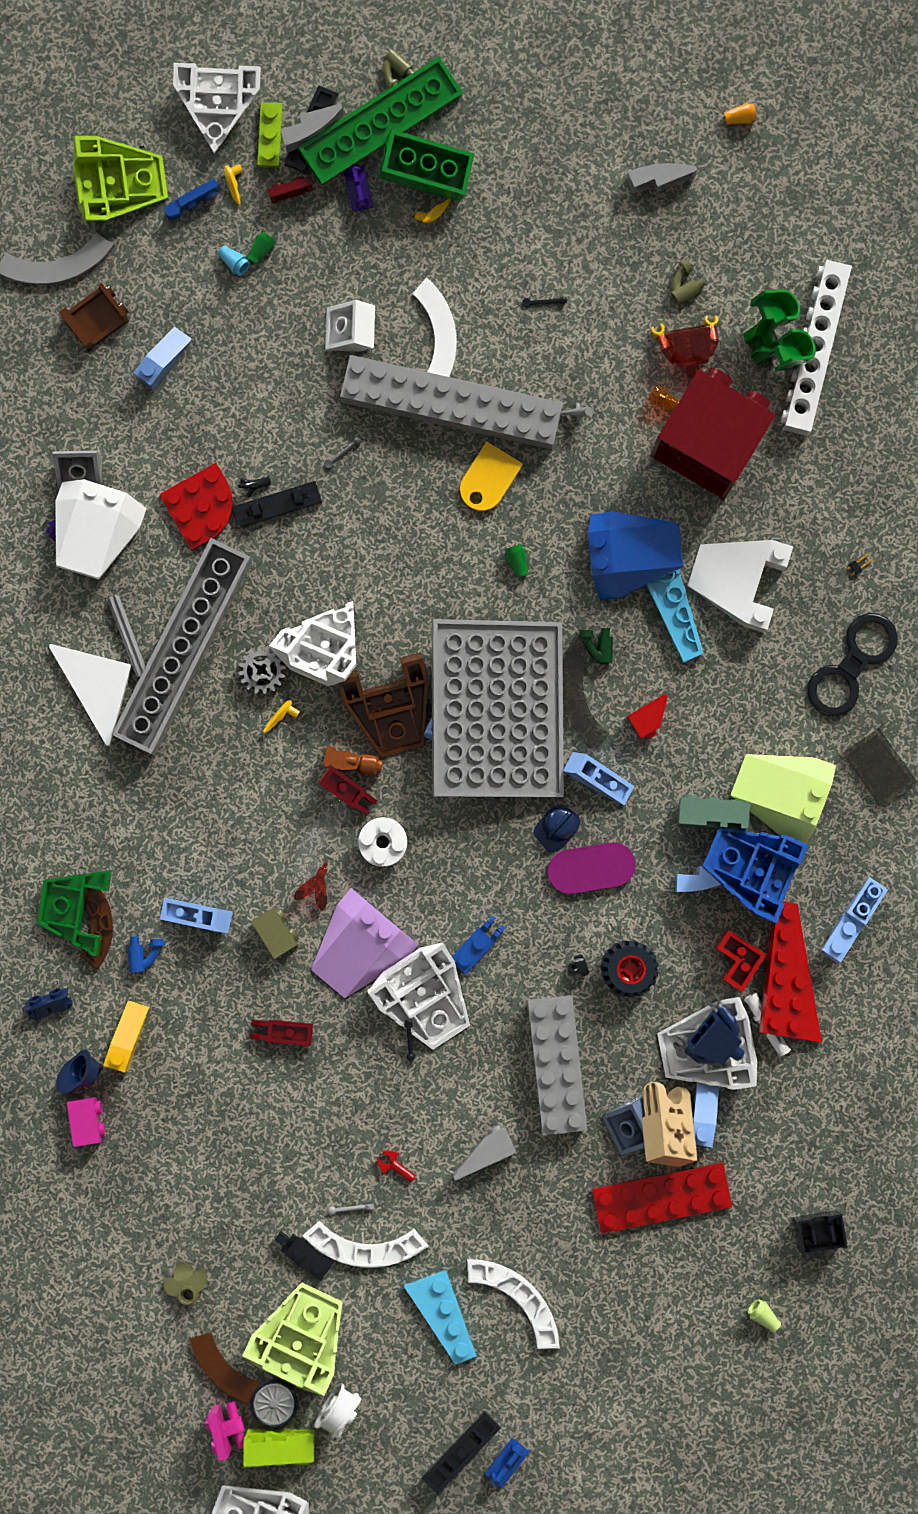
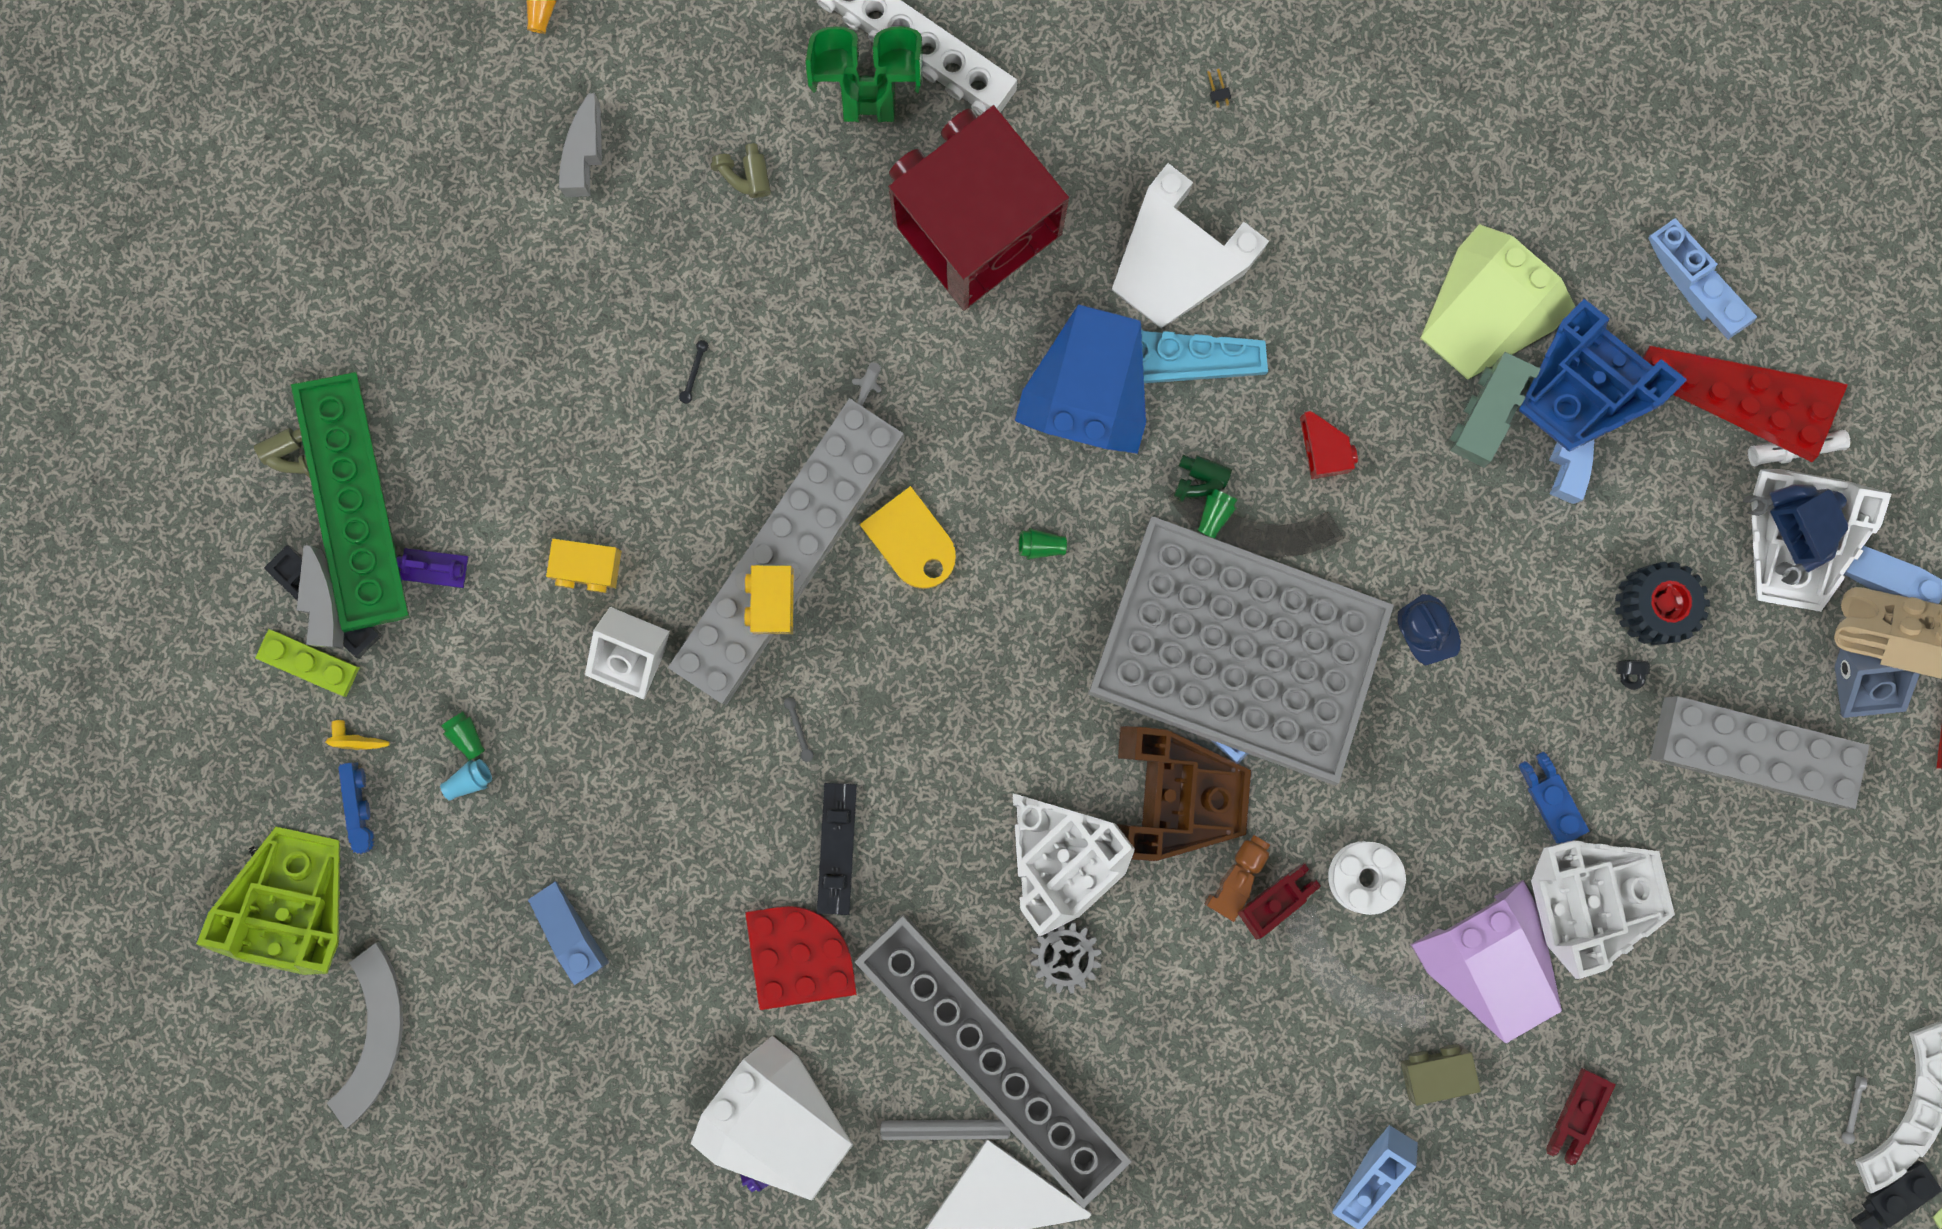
camera: 70 degrees left, 0 degrees up
(77, 466) = (679, 1113): light grey slope -> none
(96, 316) = (470, 1007): reddish brown panel -> none
(216, 96) = (221, 718): white wedge -> none
(254, 484) = (796, 870): black bar -> none
(279, 715) = (1134, 953): yellow bar -> none
(297, 187) = (395, 676): dark red plate -> none
(315, 883) = (1391, 992): clear red piece -> none
(395, 278) = (583, 564): none -> yellow brick
(397, 1167) = (1815, 1027): red bar -> none
(408, 1025) = (1637, 937): black hinge -> none
(415, 400) = (771, 599): none -> yellow brick
(425, 165) = (439, 461): green brick -> none
(433, 214) = (511, 477): yellow bar -> none
(443, 327) = (678, 524): white tile -> none
(489, 1150) = (1844, 889): light grey slope -> none
(579, 661) = (1216, 512): none -> green cone
(591, 868) = (1502, 604): magenta tile -> none
(598, 777) = (1383, 548): light blue slope -> none
(662, 398) = (891, 262): clear orange cone -> none
(689, 345) = (834, 198): clear red torso -> none
(744, 959) = (1708, 446): red brick -> none
(852, 664) = (1351, 149): black bar -> none
(879, 767) = (1503, 167): clear smoke tile -> none

